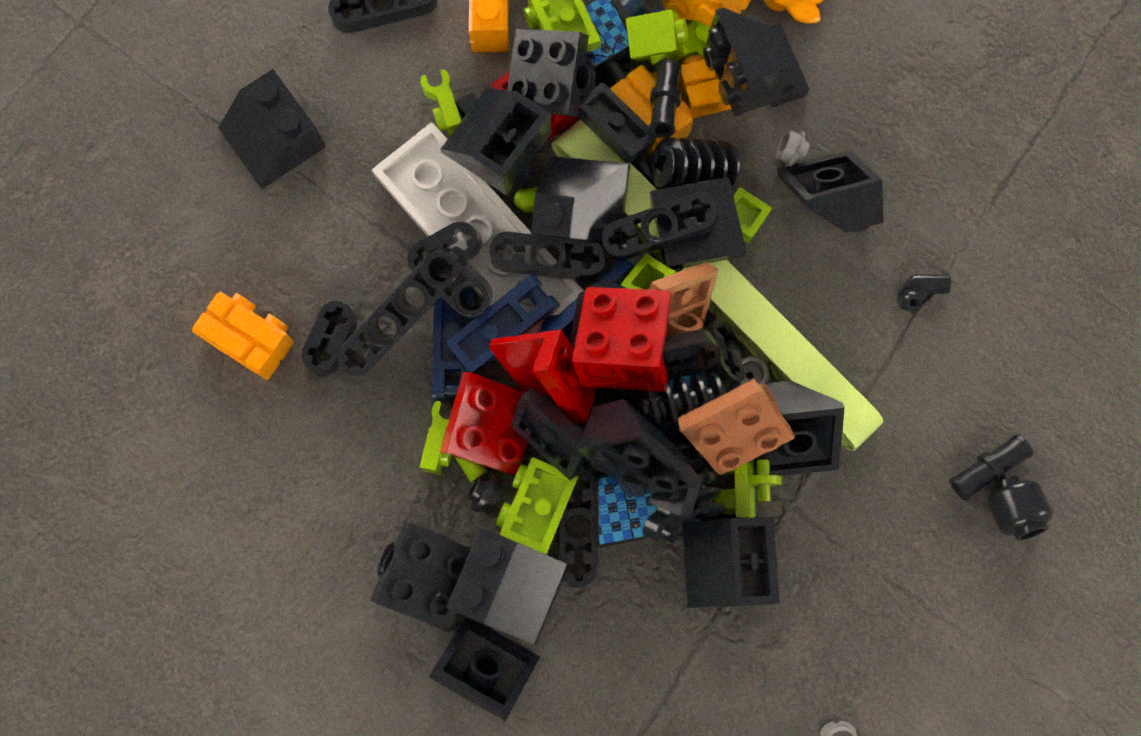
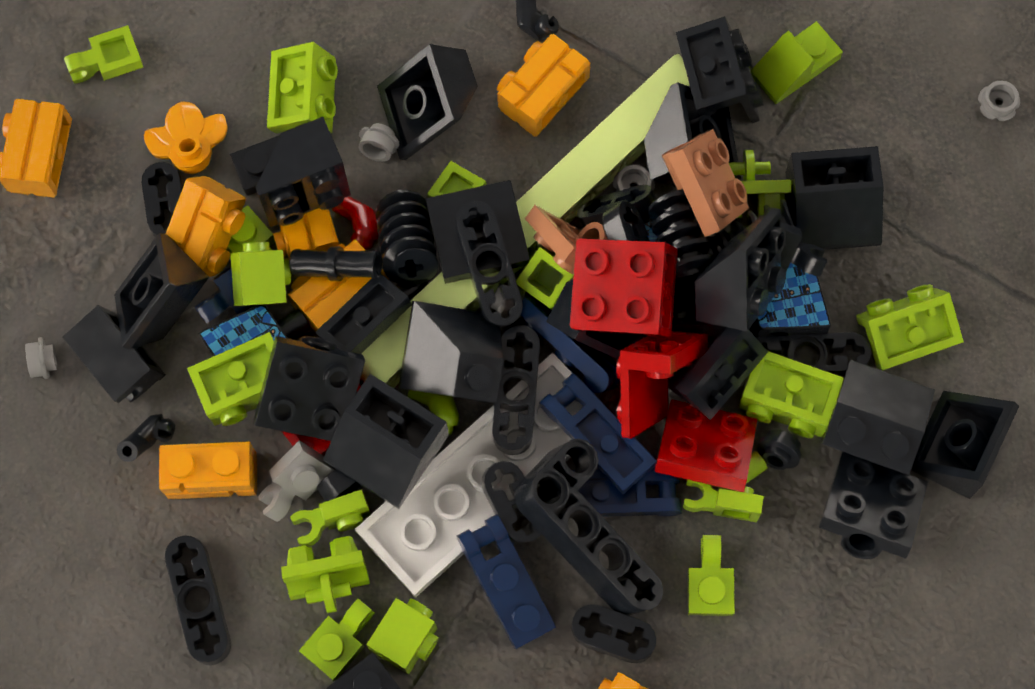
camera: 85 degrees left, 5 degrees down
(337, 161) = (404, 635): none -> lime brick
(341, 110) = (334, 644): none -> lime plate
(366, 424) = (711, 586): none -> lime plate
(375, 246) = (506, 583): none -> dark blue plate
(390, 100) = (325, 577): none -> lime hips
(479, 70) = (293, 475): none -> light grey plate
(602, 628) = (910, 326): none -> lime bracket
(718, 132) = (362, 221): none -> red arm
(843, 84) = (301, 87): none -> lime bracket
(851, 293) = (542, 84): none -> light orange brick
(862, 455) = (719, 68): none -> black bracket
(880, 538) = (795, 61): none -> lime slope

